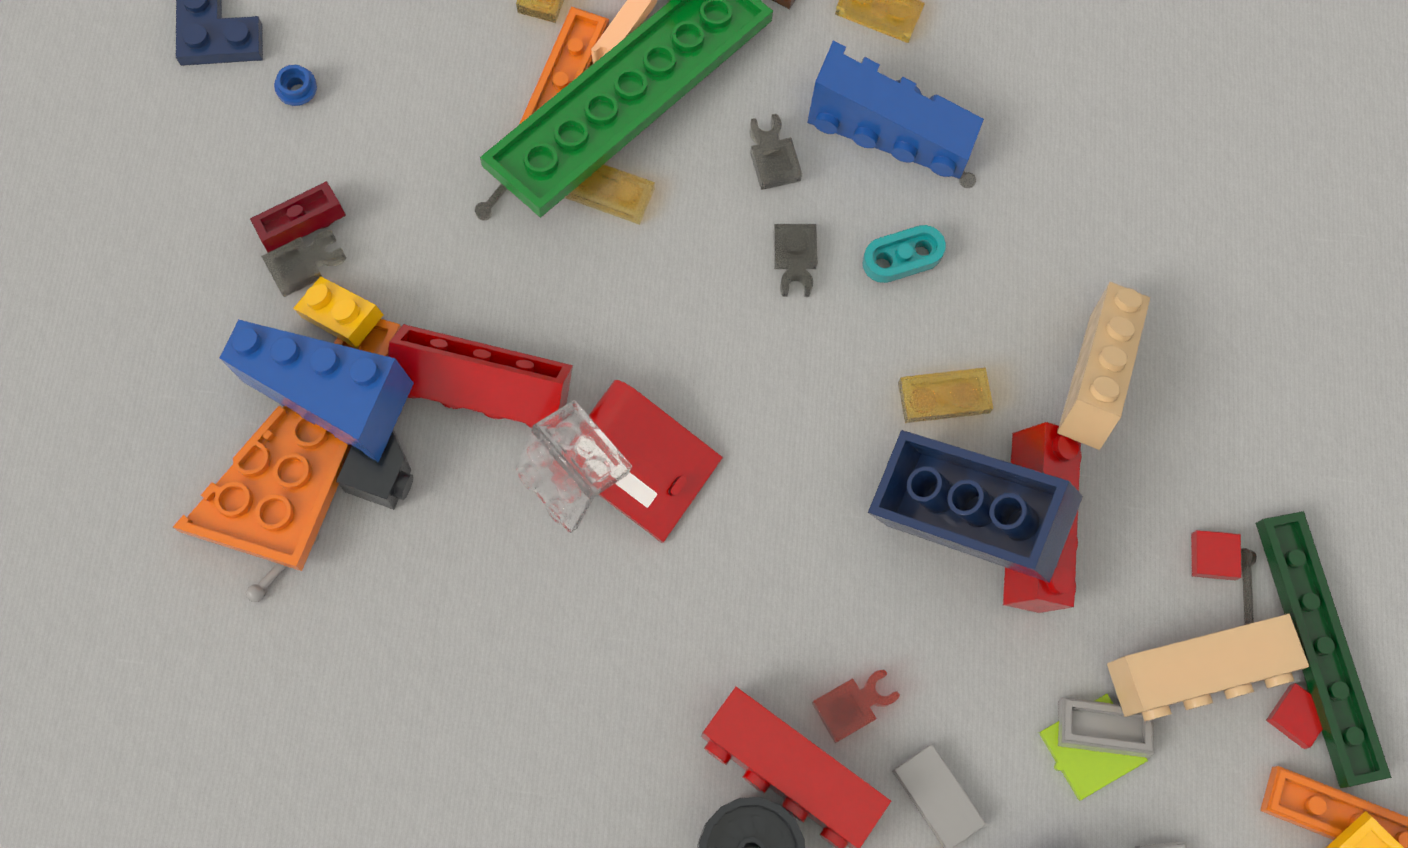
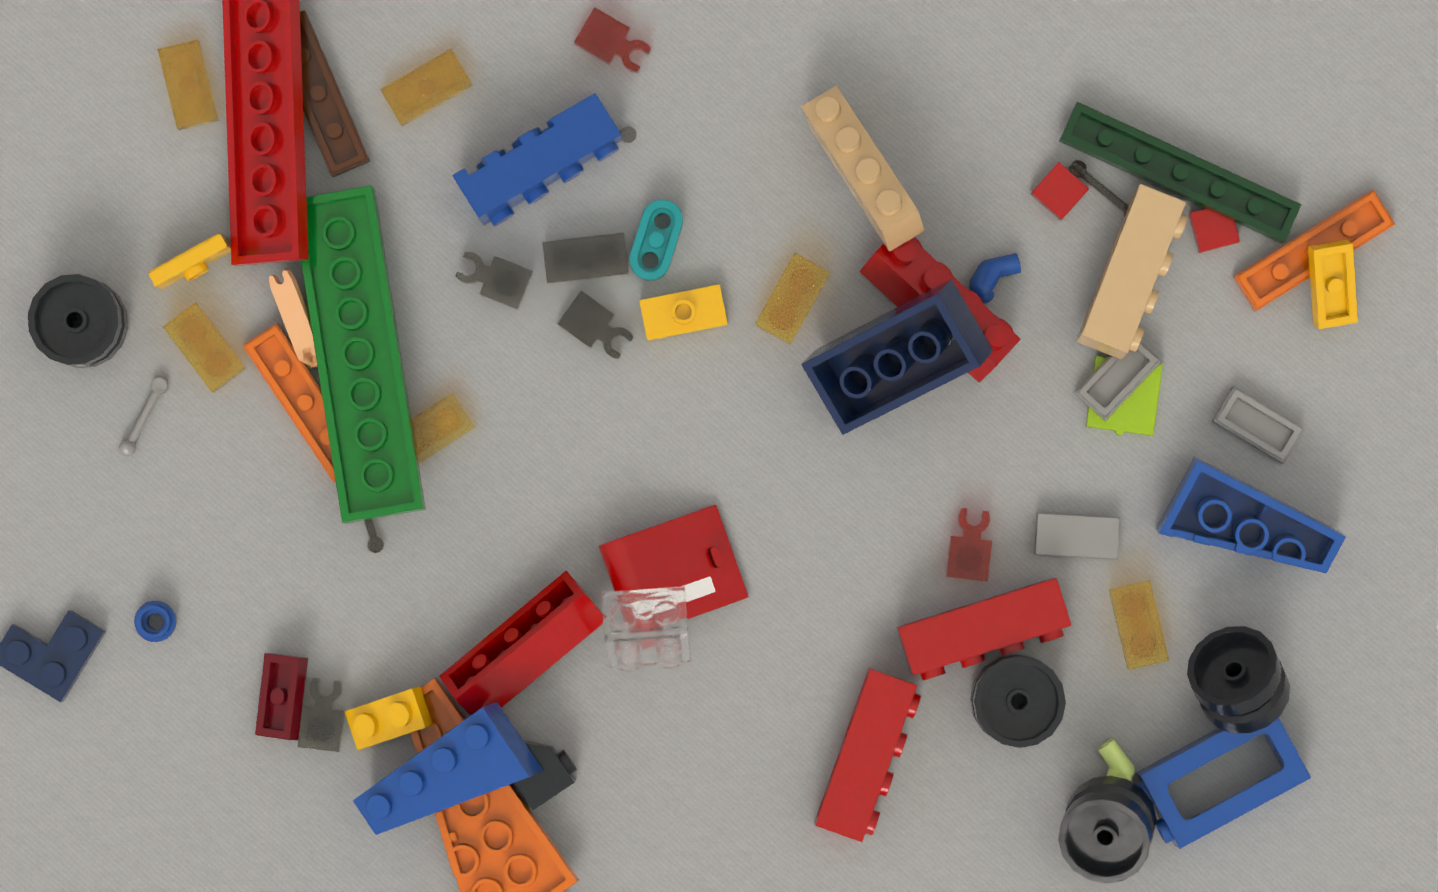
camera: 50 degrees left, 15 degrees up
(595, 748) = (866, 754): none -> red brick
(845, 209) = (585, 258): none -> clear smoke plate
(862, 318) = (683, 312): none -> yellow plate
(1029, 111) = (606, 37): none -> clear red plate
(1103, 545) = (989, 272): none -> blue arm

